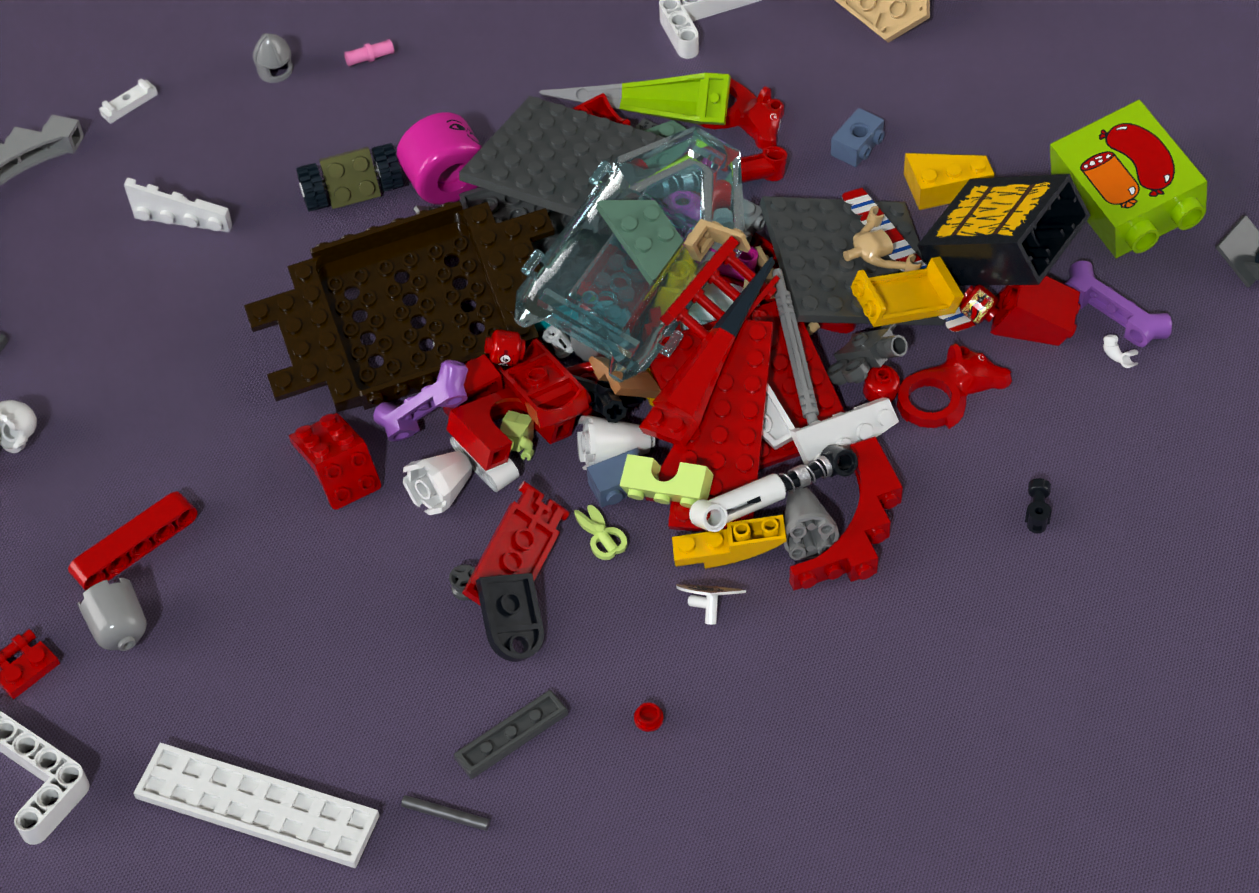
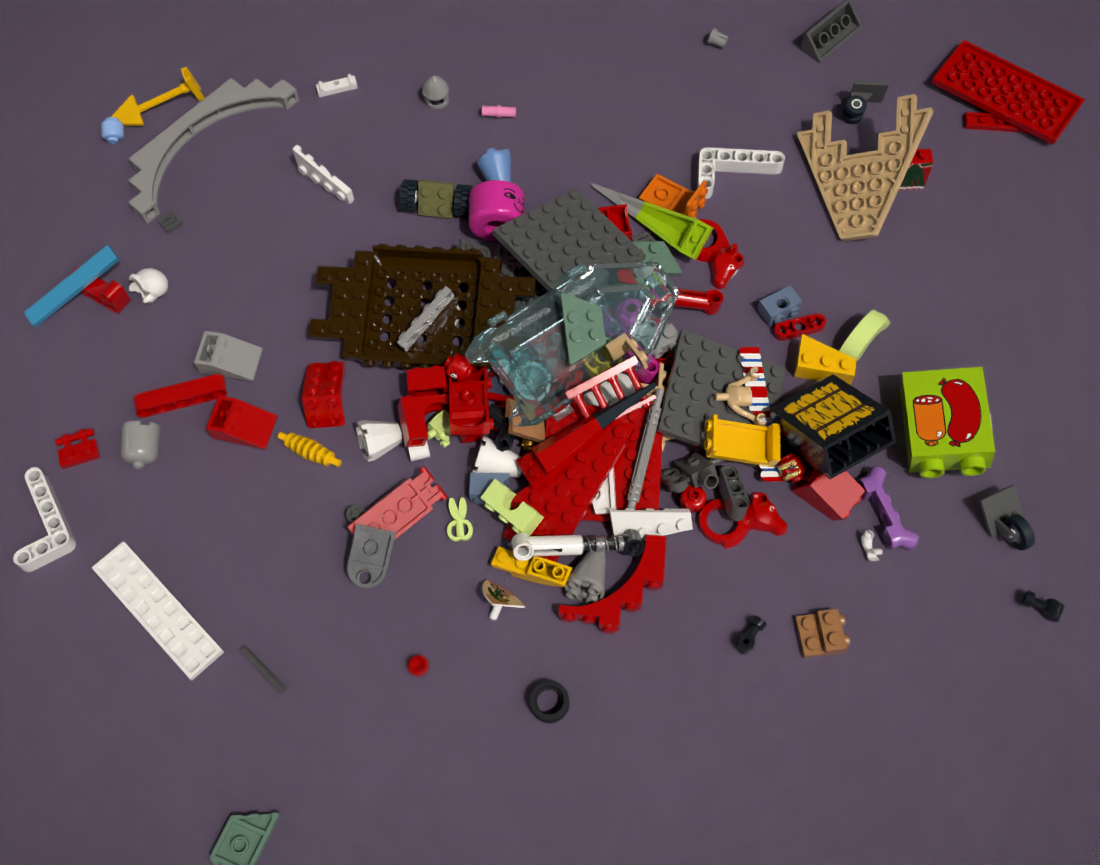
camera: 25 degrees right, 10 degrees up
(172, 466) = (227, 356): none -> light grey slope
(241, 537) = (241, 423): none -> red slope
(352, 531) = (309, 449): none -> yellow piece
(403, 109) = (495, 164): none -> medium blue cone
(426, 305) = (422, 322): none -> light grey plate
(445, 392) = (403, 383): medium lavender plate -> none
(510, 734) = (330, 635): dark grey tile -> none
(638, 410) = (527, 444): none -> pearl gold plate
(652, 65) = (675, 197): none -> orange bracket
(846, 664) = (549, 685): none -> black tyre
(889, 161) = (805, 321): none -> red beam
(928, 358) = (733, 493): none -> dark grey beam
(978, 125) = (864, 334): none -> yellowish green arch
(1121, 468) = (822, 633): none -> medium nougat plate

